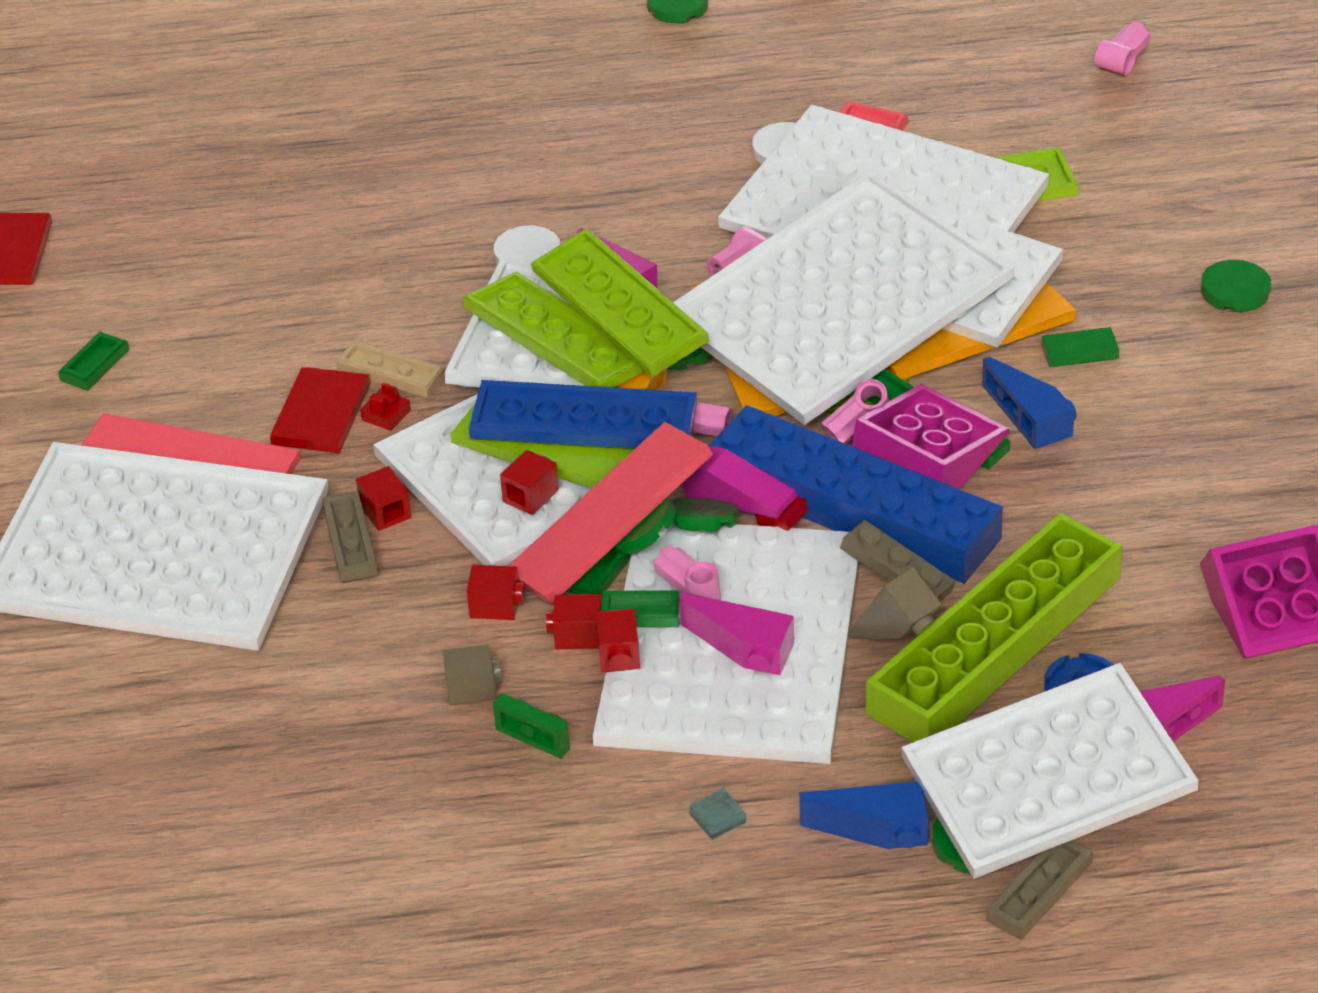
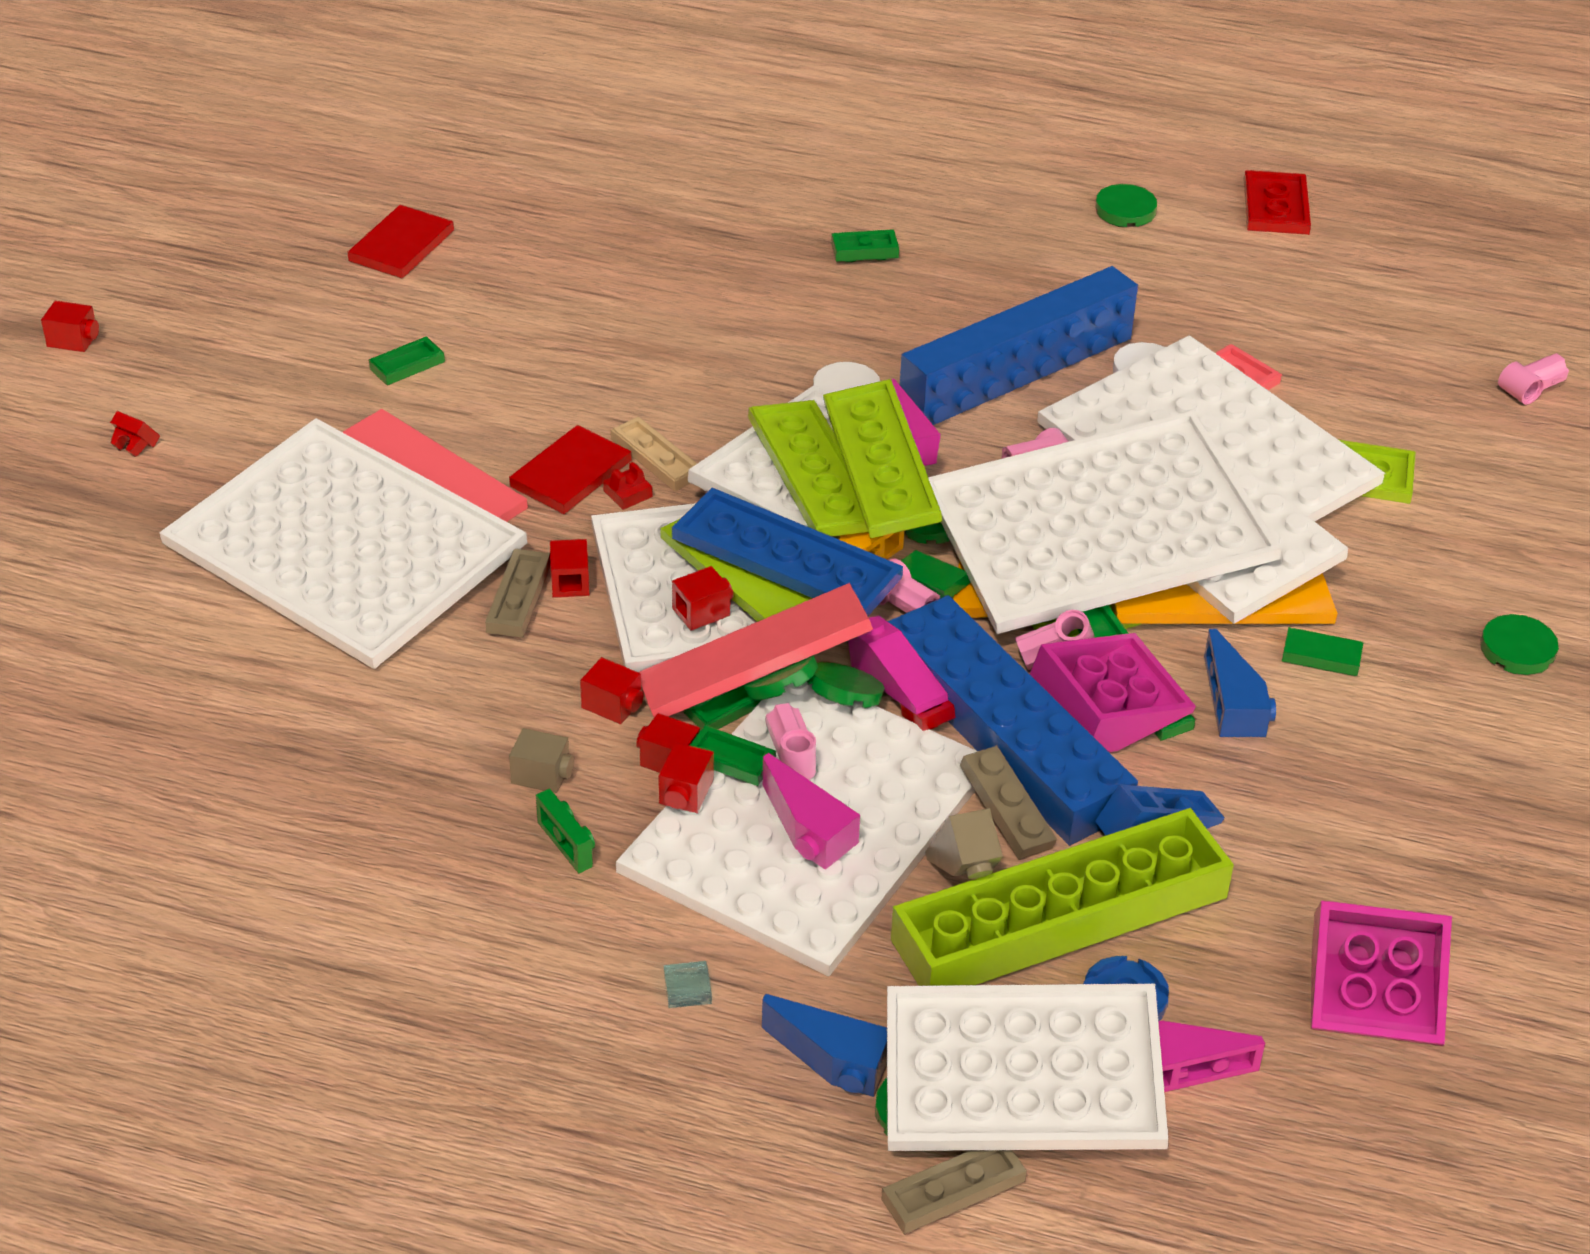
camera: 20 degrees right, 0 degrees up
(462, 113) = (865, 245): none -> green plate
(671, 158) = (1019, 345): none -> blue brick
(718, 391) = (936, 574): none -> green tile
(1016, 526) = (1140, 804): none -> blue slope

